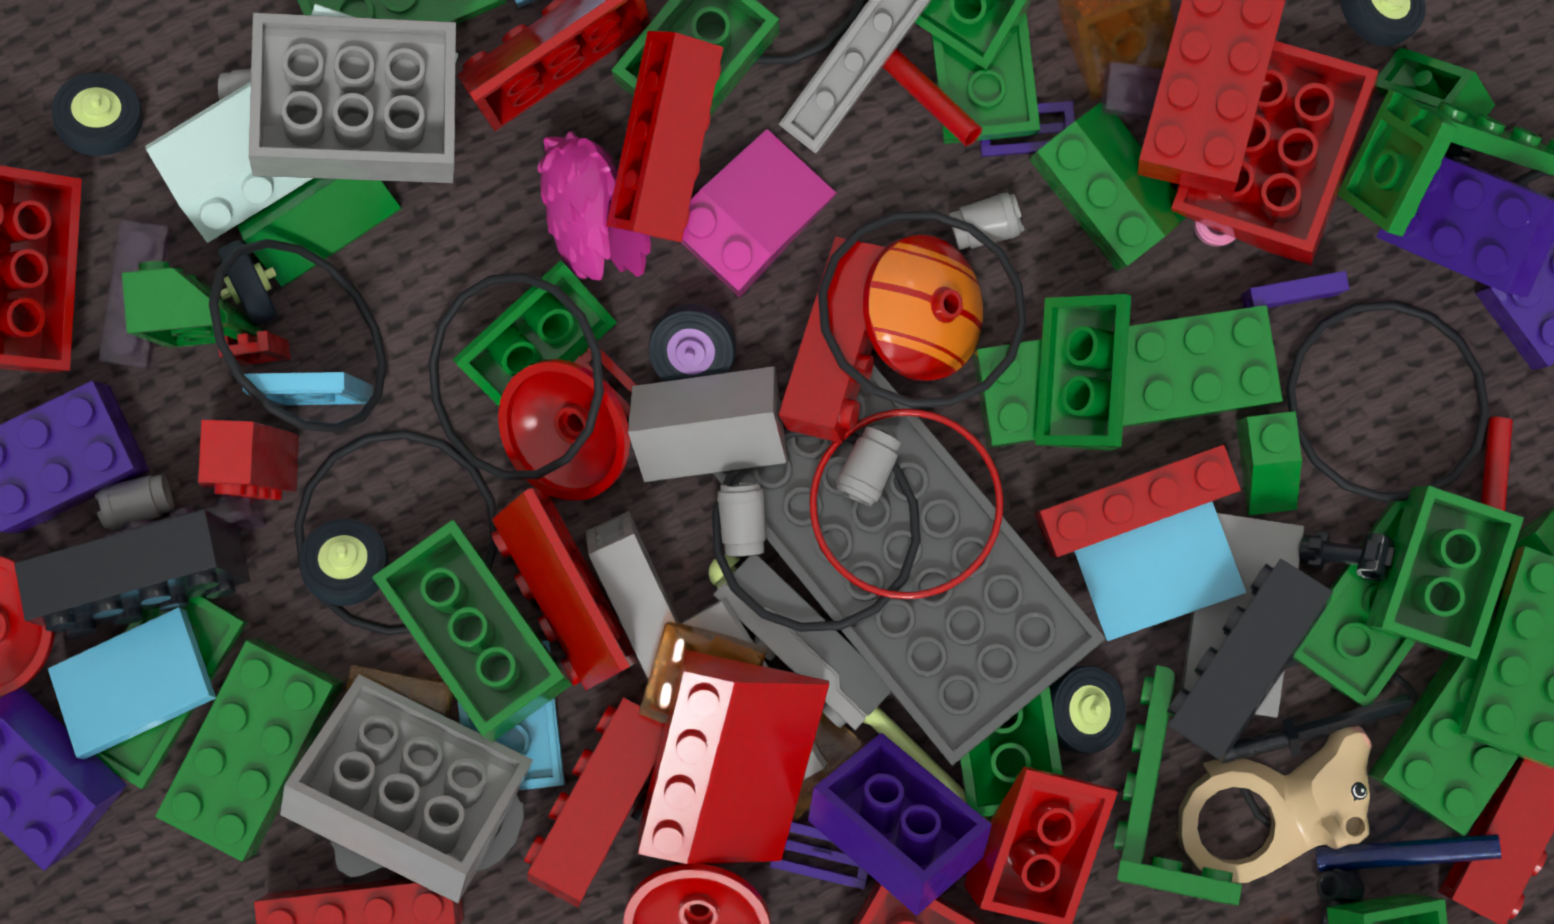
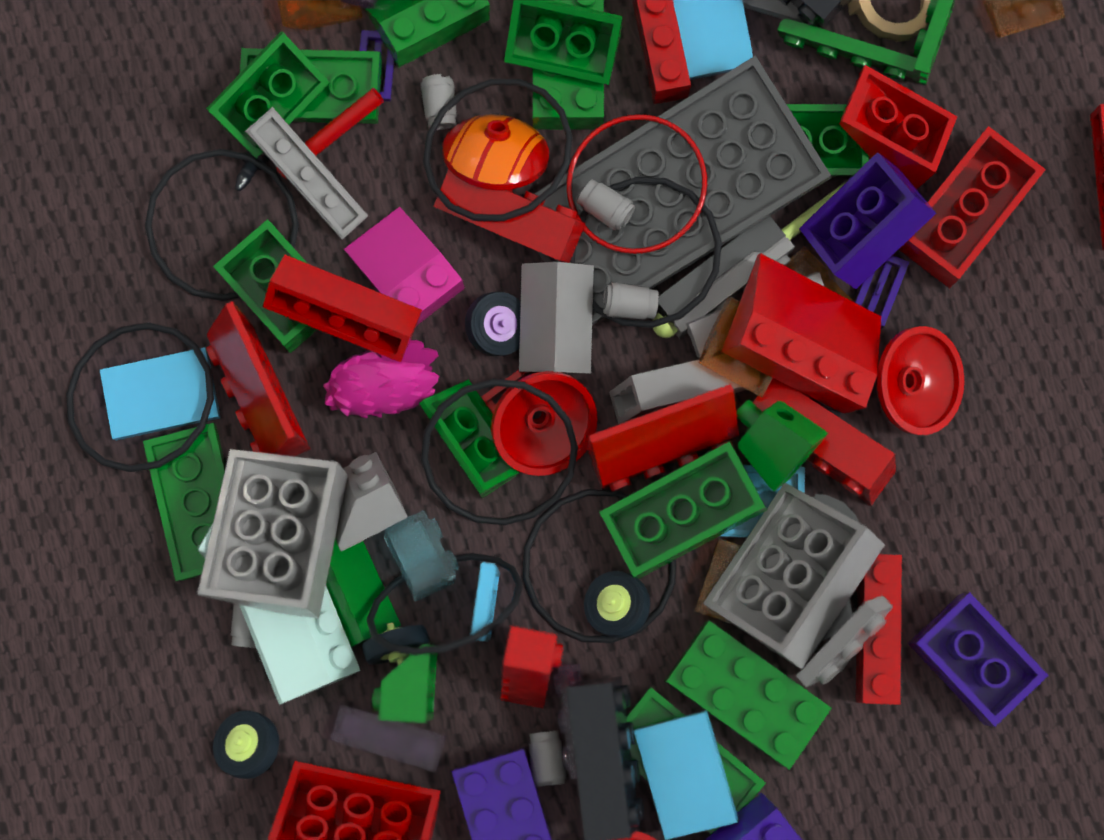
camera: 85 degrees left, 5 degrees down
(260, 349) = (450, 636): red tile -> none
(318, 868) = (846, 642): none -> light grey wing
(368, 296) = (421, 555): none -> clear light blue brick
(424, 217) = (368, 502): none -> light grey slope
(579, 741) = (777, 440): none -> green torso
(1087, 709) = (803, 82): black wheel -> none

